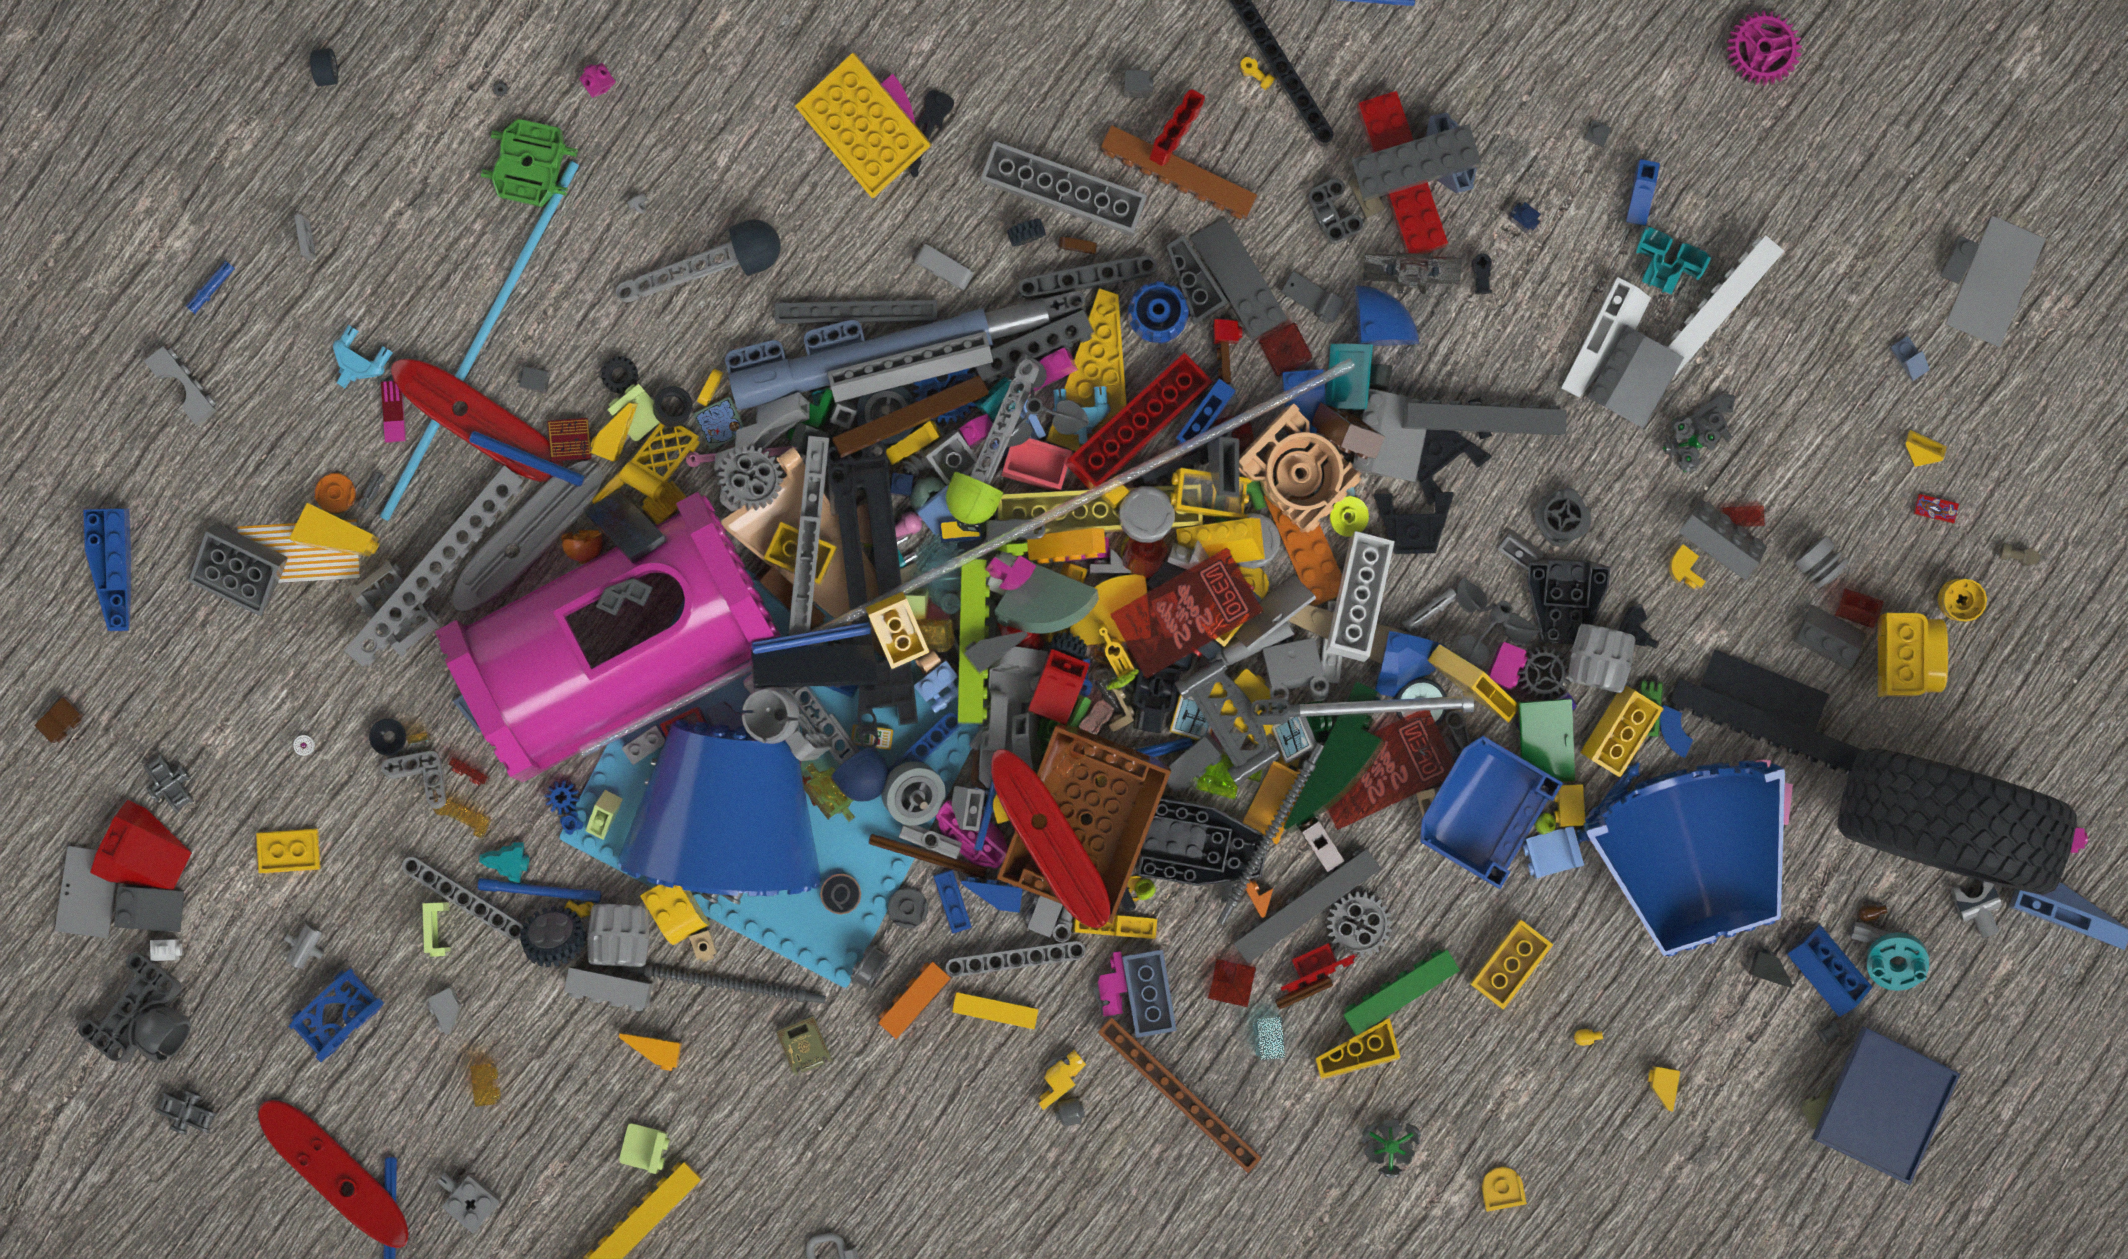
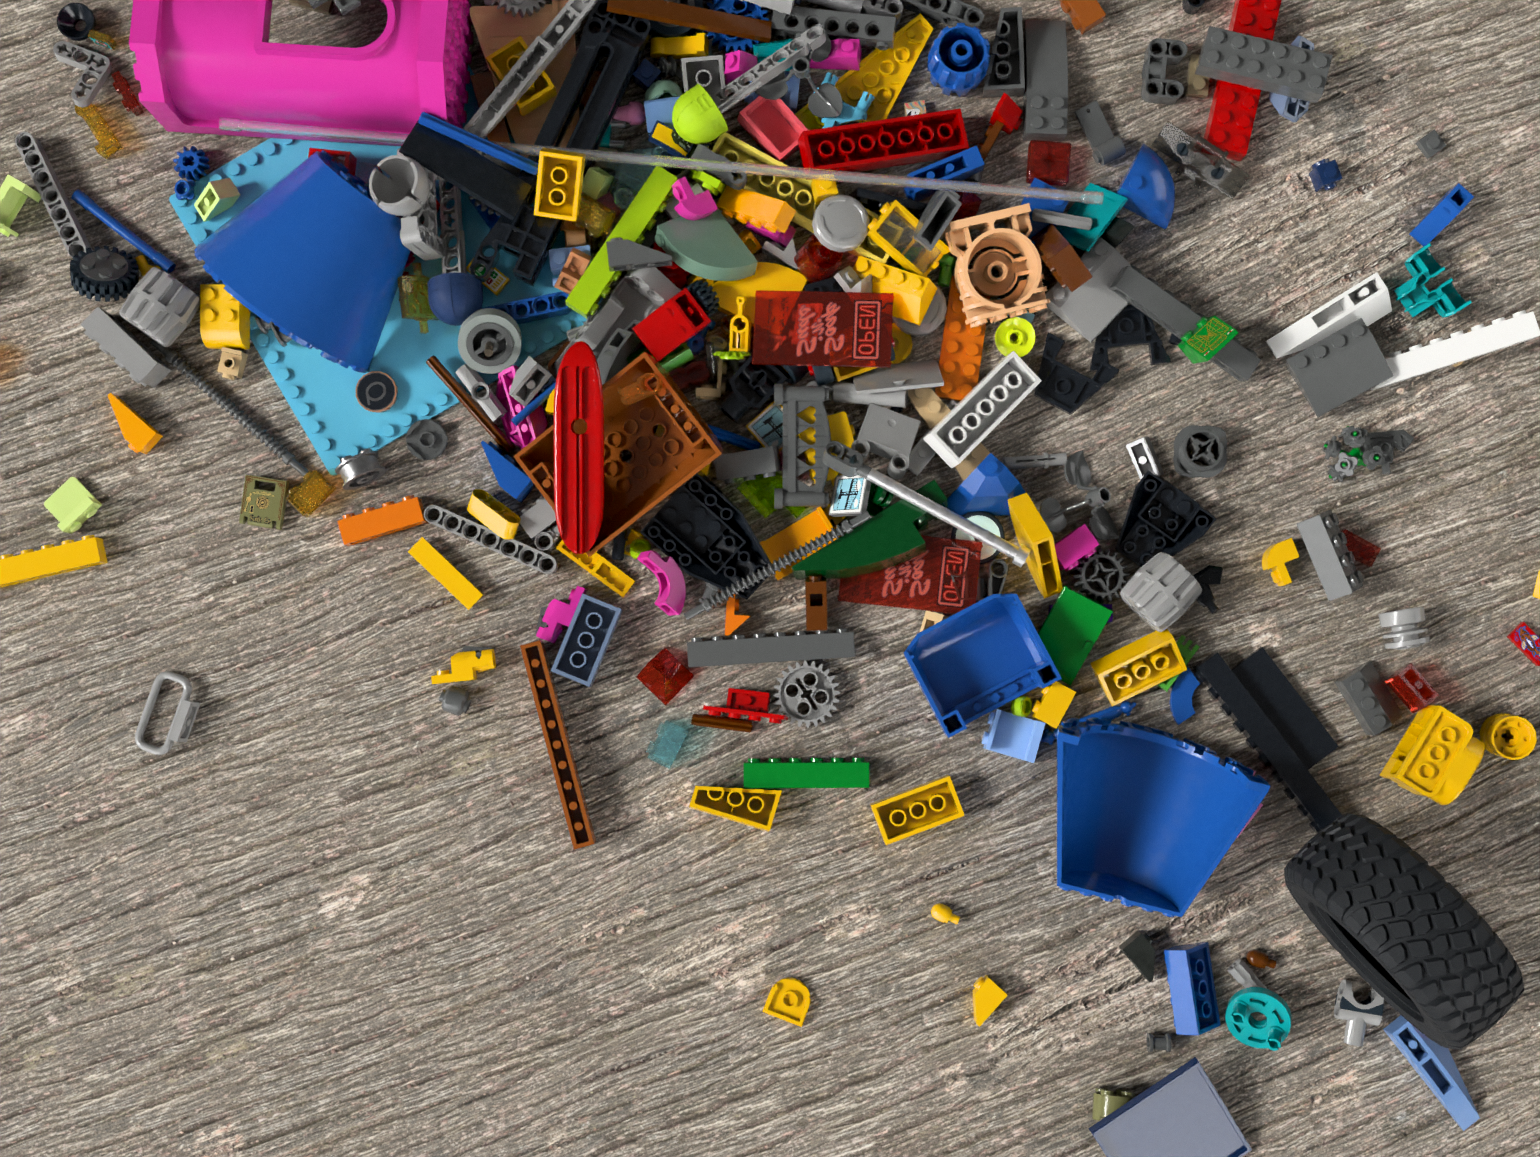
camera: 25 degrees right, 0 degrees up
(508, 861) = (112, 190): teal rock -> none
(644, 744) = (284, 159): light grey brick -> none
(839, 1013) = (310, 493): none -> clear yellow brick
(946, 692) = (572, 270): none -> nougat slope
(952, 901) = (468, 458): blue tile -> none
(1005, 936) = (493, 514): none -> yellow beam
(1146, 374) = (915, 108): none -> tile
(1188, 900) = (670, 579): none -> dark pink arch
(1327, 394) = (1061, 219): none -> light grey axle
(1395, 1148) = (718, 909): dark grey plant -> none
(1482, 274) = (1258, 201): black connector -> none
(1510, 425) = (1206, 339): none -> green slope

